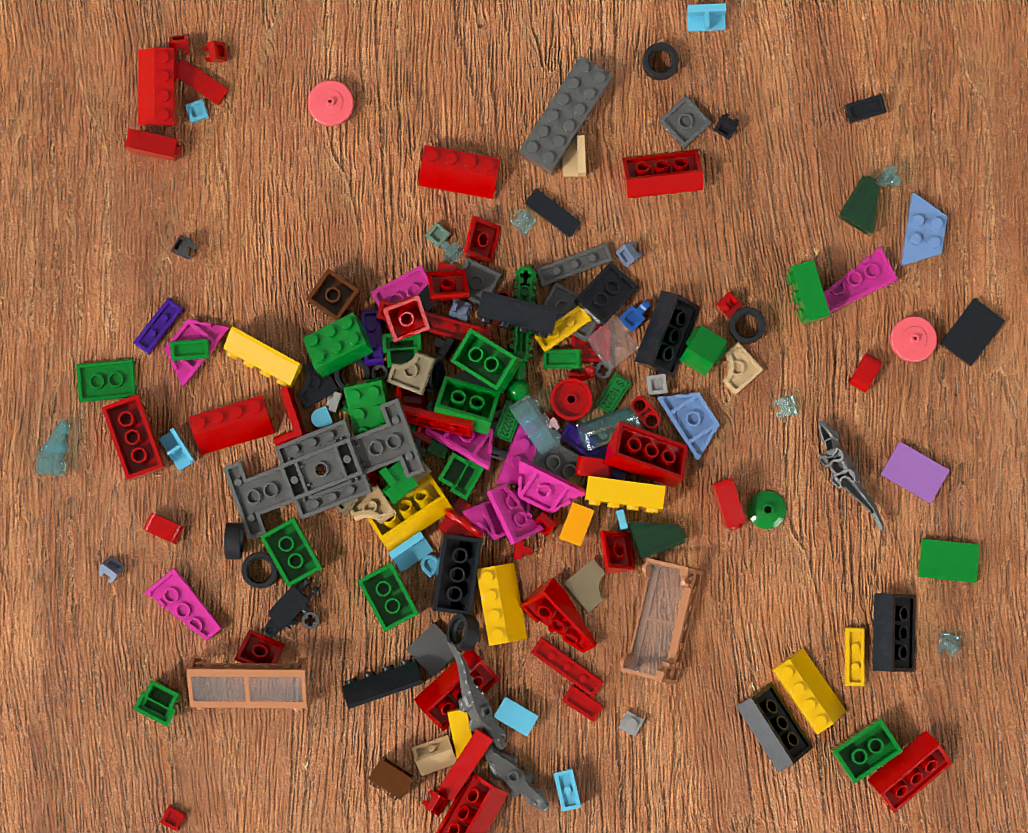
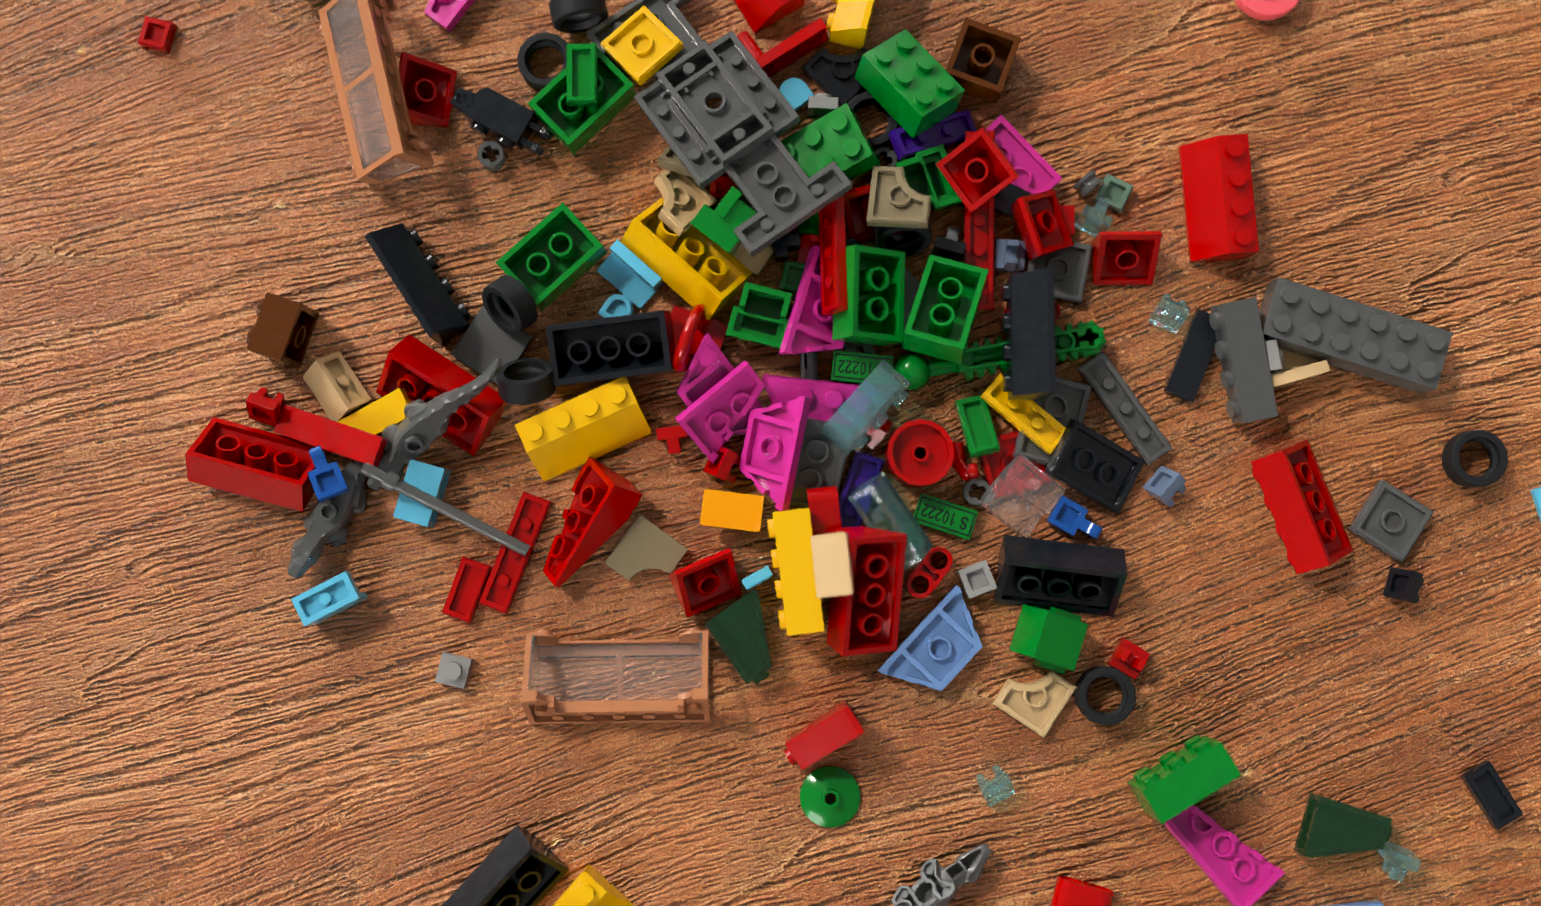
camera: 80 degrees right, 0 degrees up
(269, 506) = (642, 45): none -> yellow tile
(279, 548) = (582, 74): none -> green tile
(413, 630) = (510, 304): none -> black tyre
(428, 249) = (1088, 183): none -> dark grey bush
(493, 771) = (326, 478): none -> blue plate
(506, 729) = (391, 482): none -> dark grey bar
(564, 185) = (1243, 361): none -> dark grey brick
(566, 168) = (1274, 355): none -> light grey plate
(627, 470) = (832, 565): none -> tan panel

